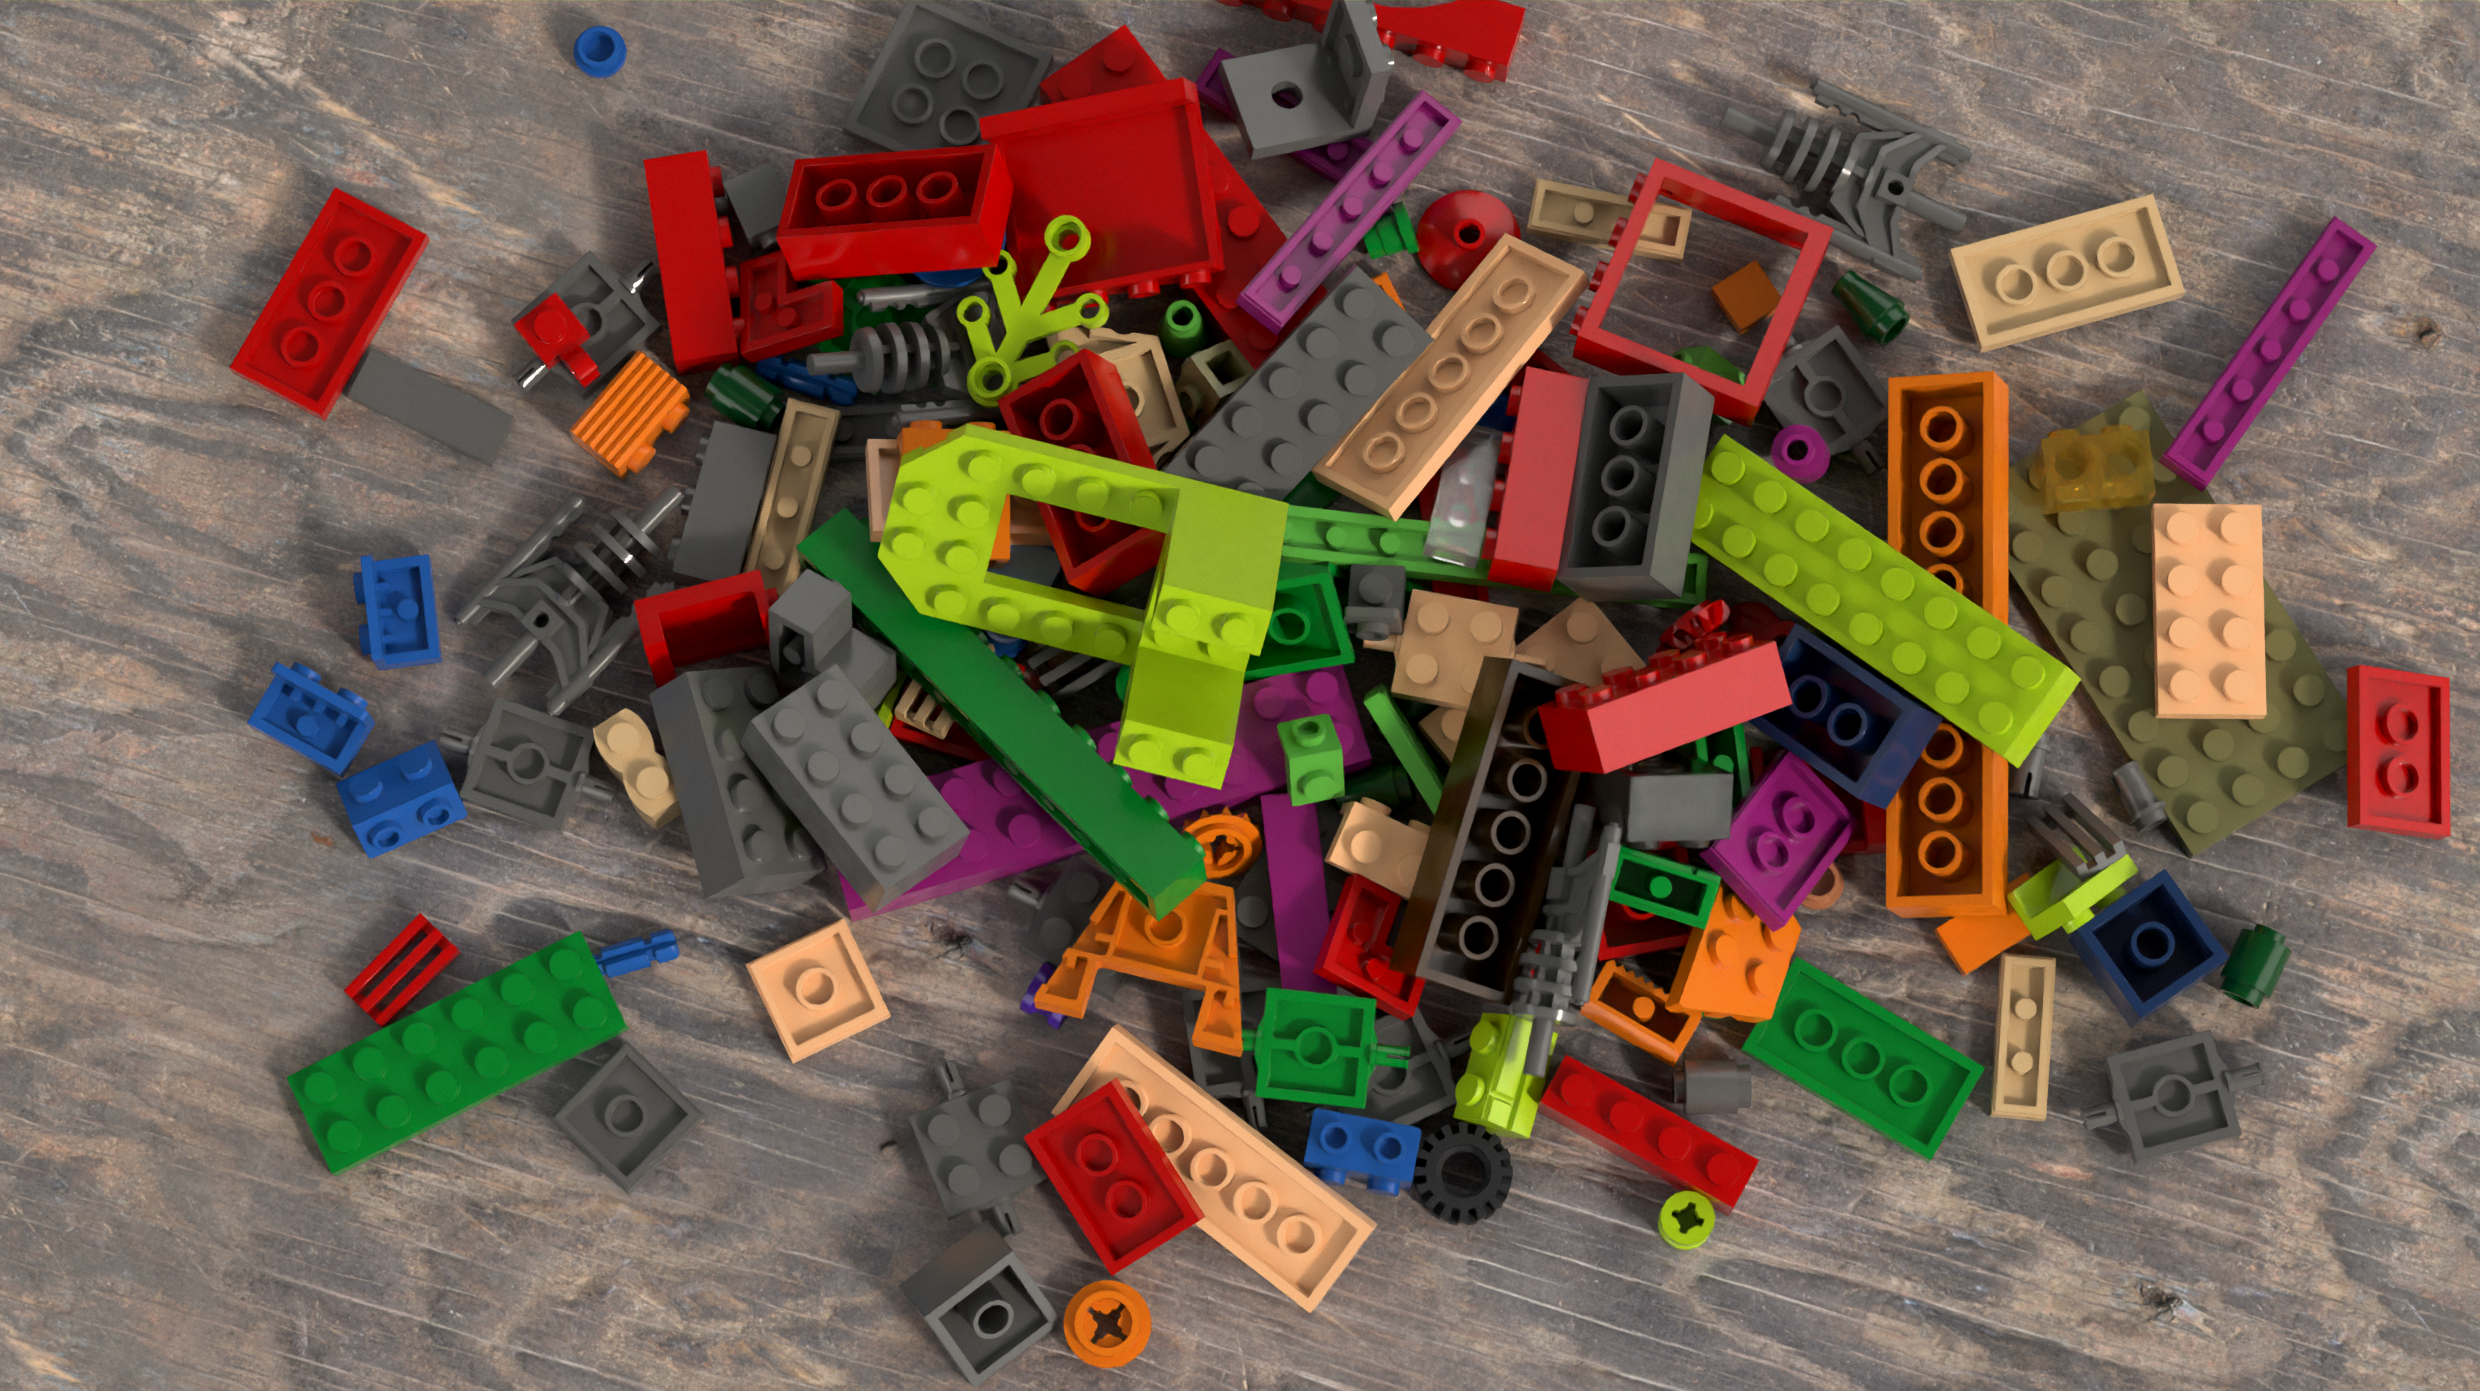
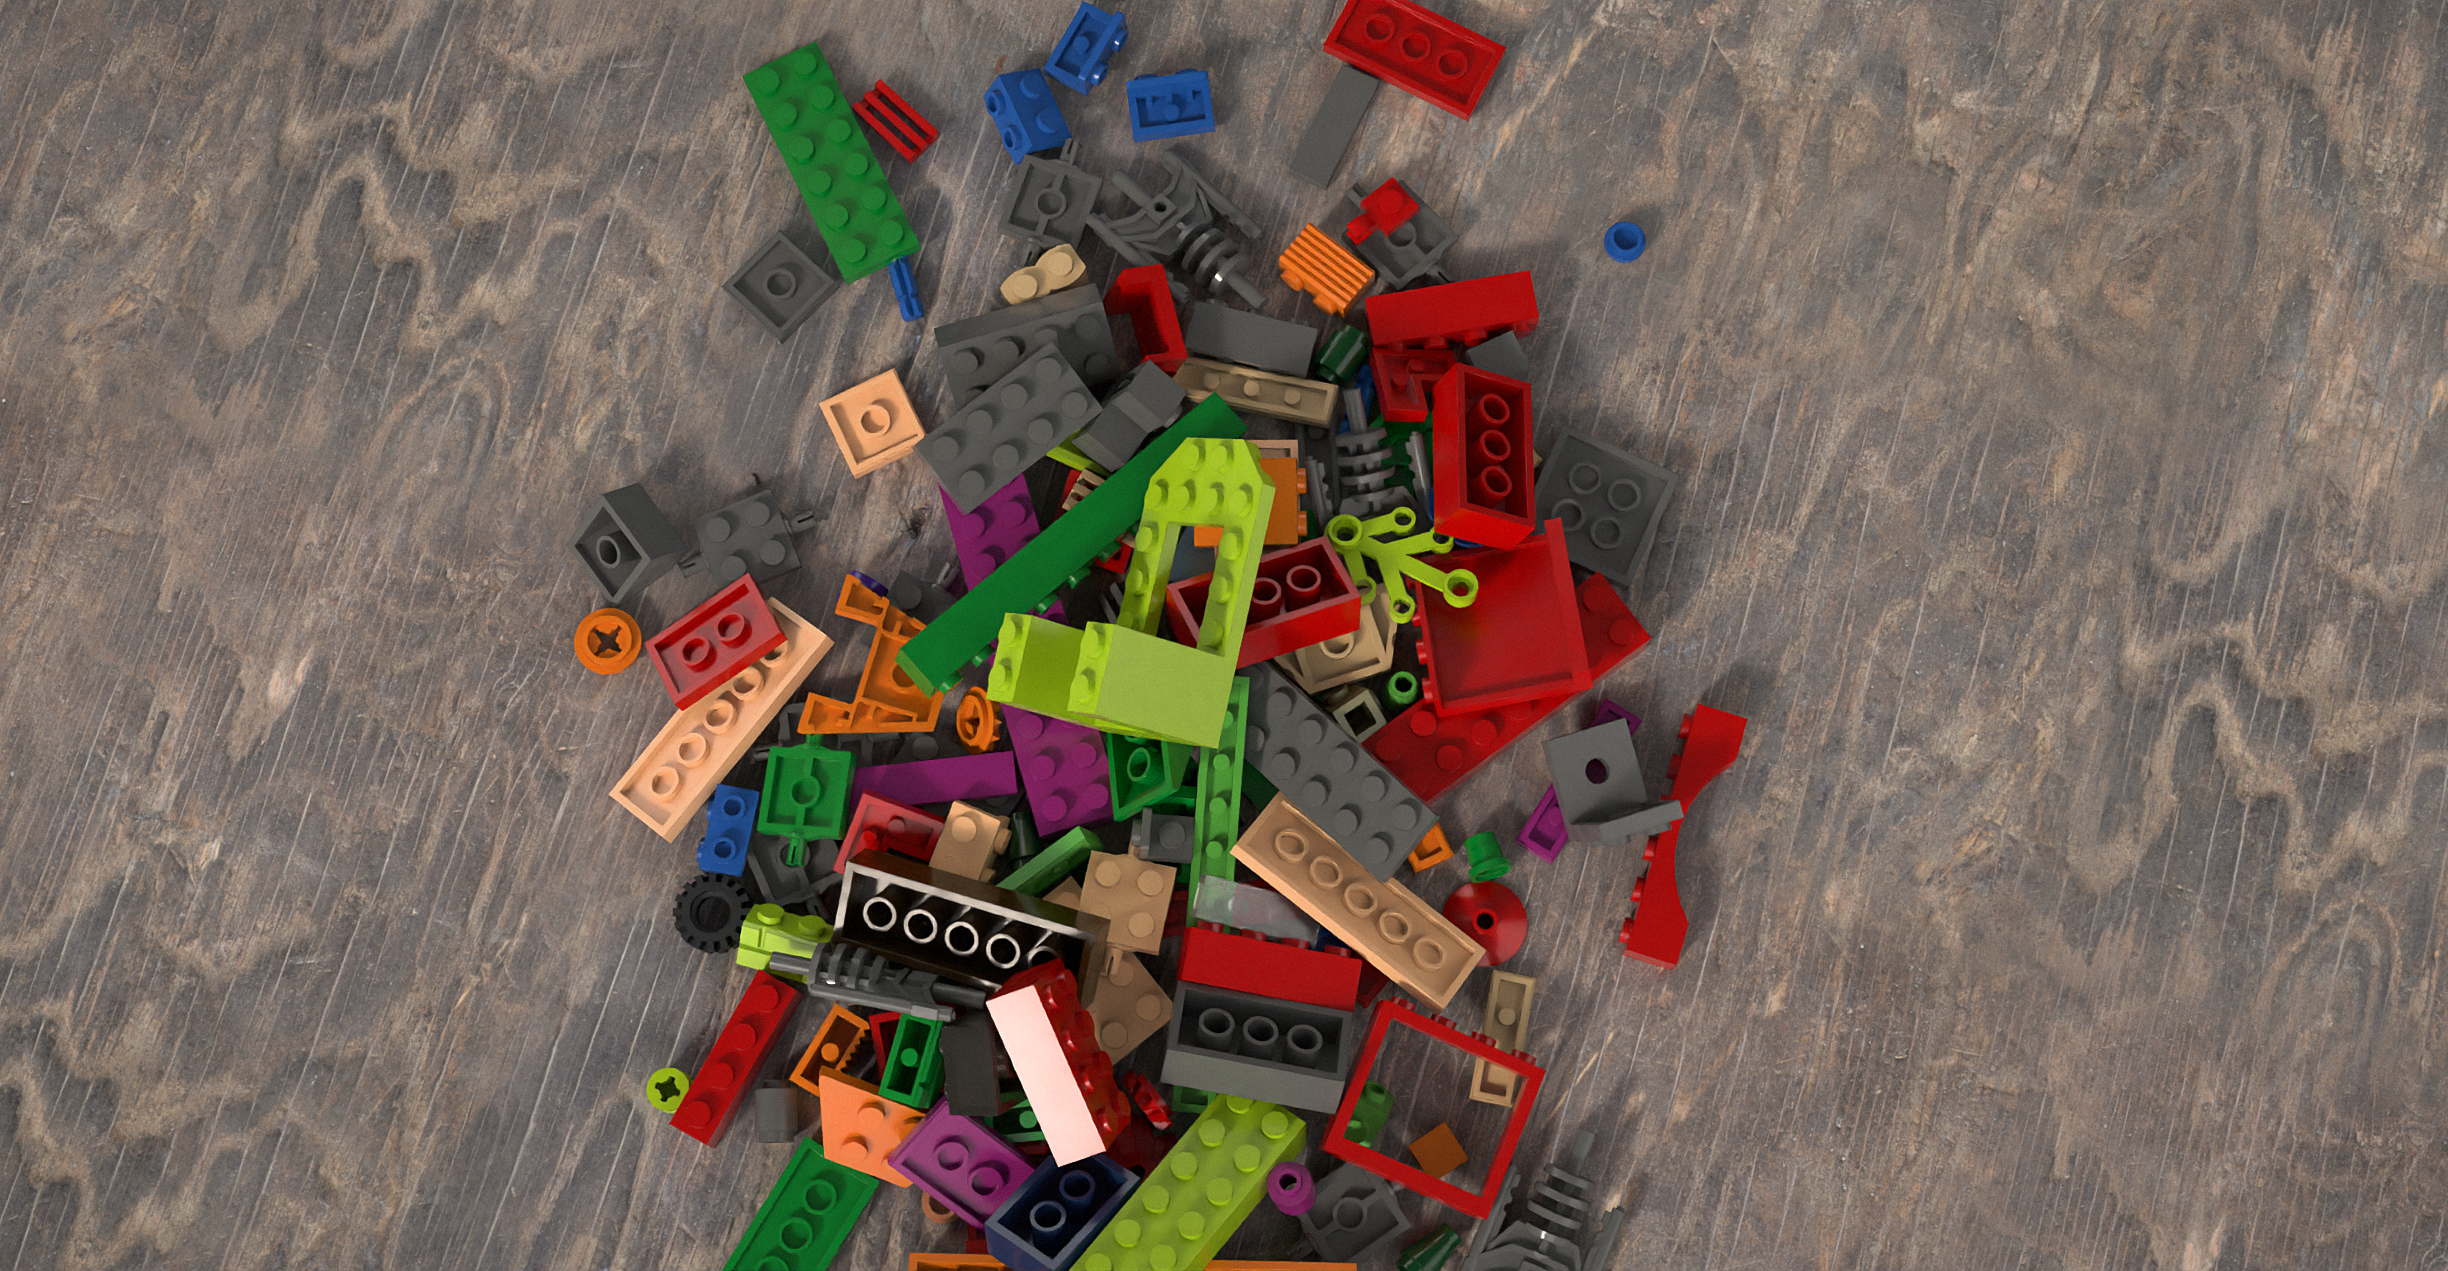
camera: 95 degrees right, 0 degrees up
(1312, 759) = (1035, 786): bright green bracket -> none
(1348, 212) = (1496, 819): magenta tile -> none

